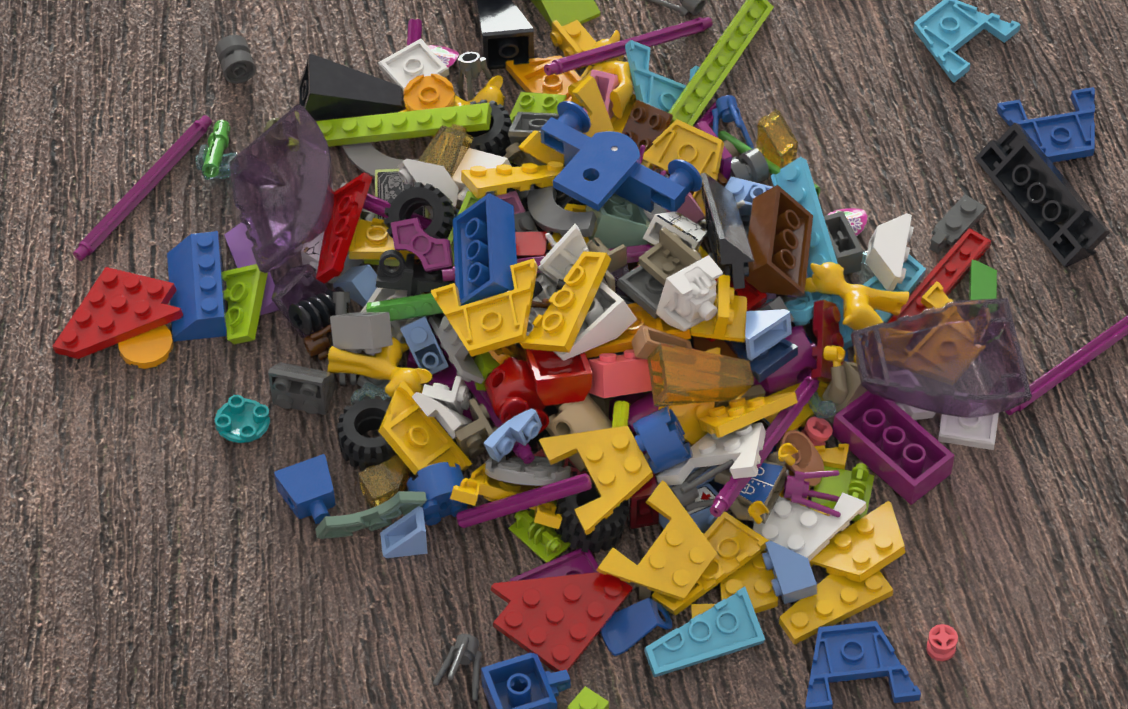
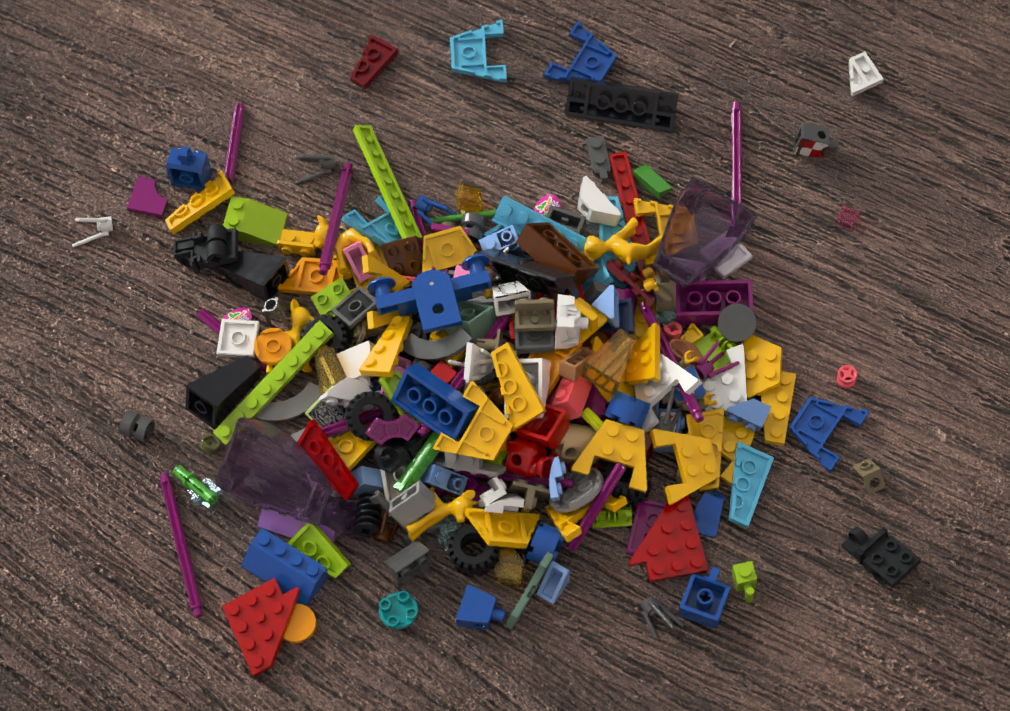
camera: 45 degrees left, 10 degrees up
(885, 478) = (736, 322): none -> dark grey tile

